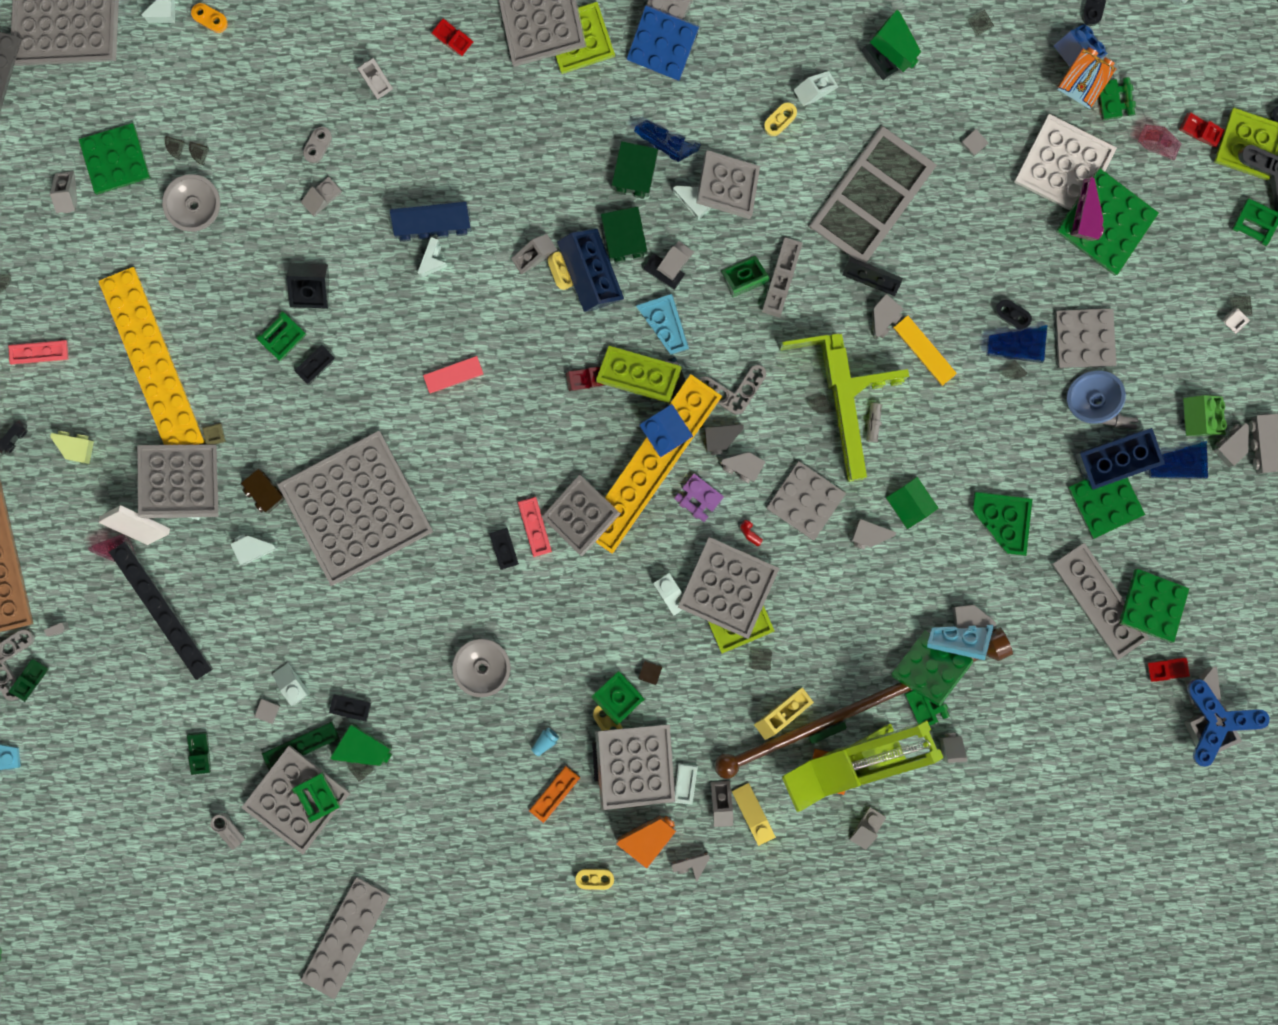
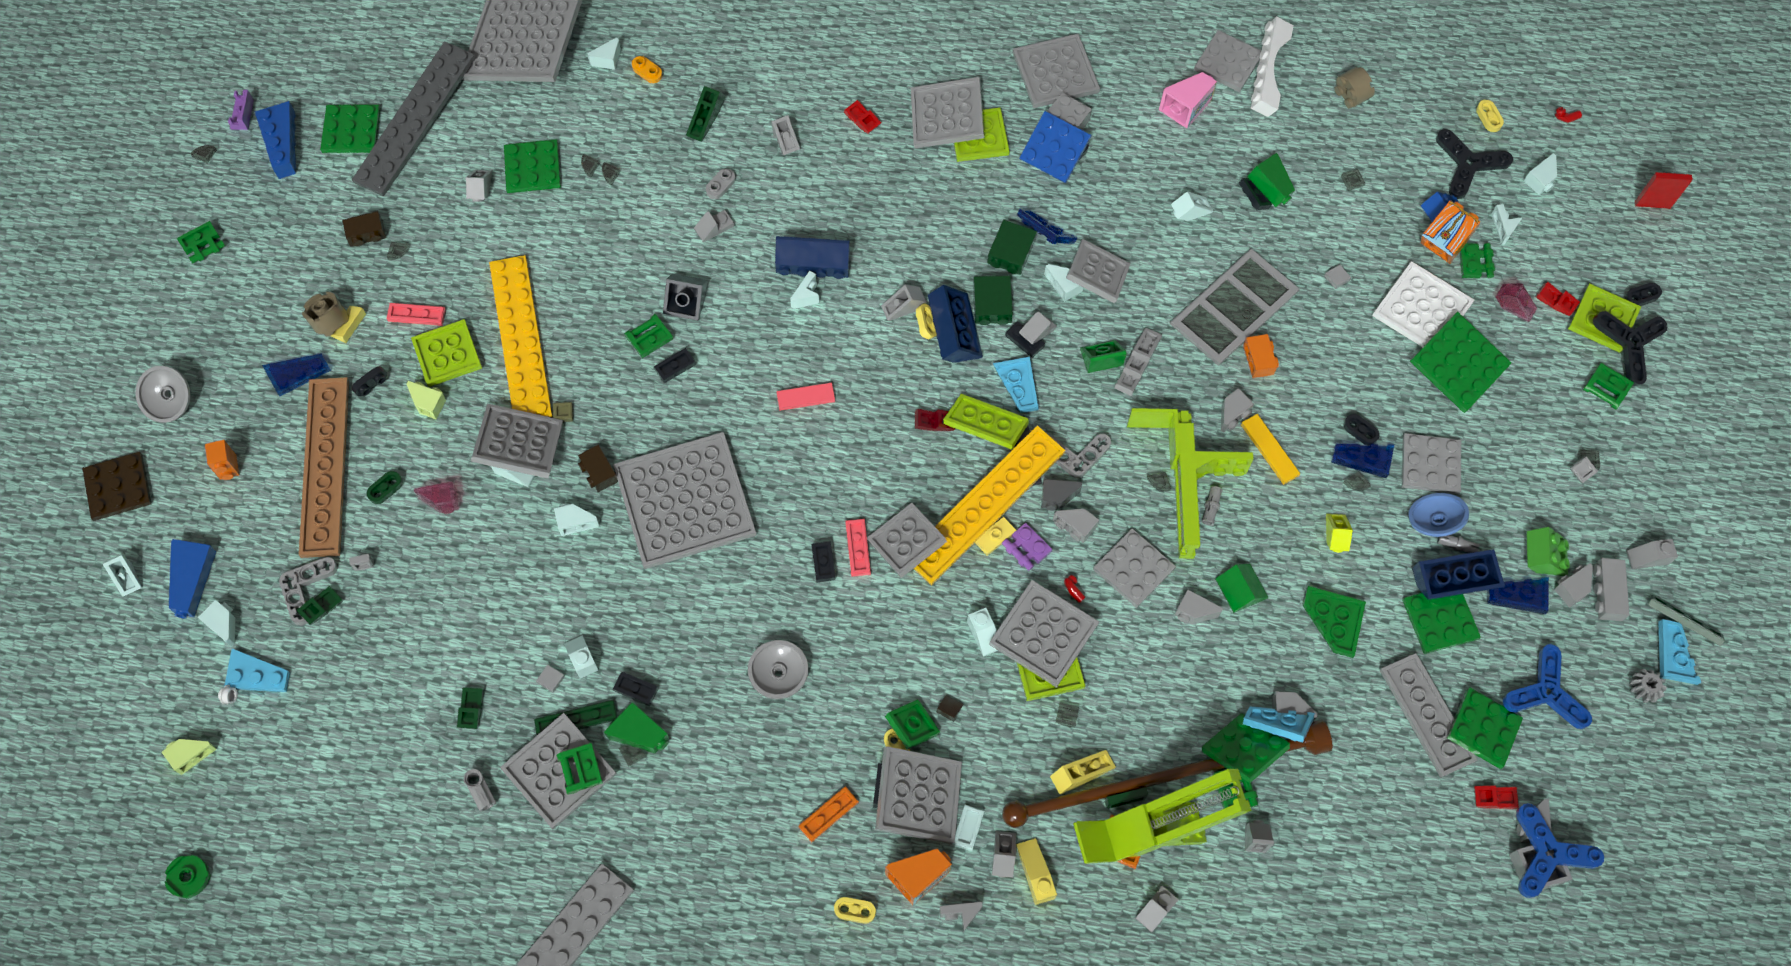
camera: 15 degrees right, 20 degrees down
(57, 546) = (383, 486): none -> dark green plate
(80, 391) = (446, 353): none -> lime plate
(130, 524) = (464, 472): white tile -> none
(160, 610) = (469, 561): black plate -> none
(182, 194) = (590, 201): light grey dish -> none
(284, 63) = (705, 113): none -> dark green slope
(546, 740) = (828, 757): medium azure cone -> none
(666, 430) = (1004, 471): blue slope -> none
(667, 491) = (995, 536): none -> light yellow plate
(780, 120) = (1154, 229): light yellow plate -> none
(872, 276) = (1226, 373): black plate -> none
(904, 250) = (1260, 356): none -> orange brick
(999, 430) = (1338, 532): none -> neon yellow slope
(1088, 216) = (1444, 345): magenta slope -> none
(1143, 55) = (1503, 224): none -> light aqua slope
(1212, 545) = (1549, 677): none -> blue piece

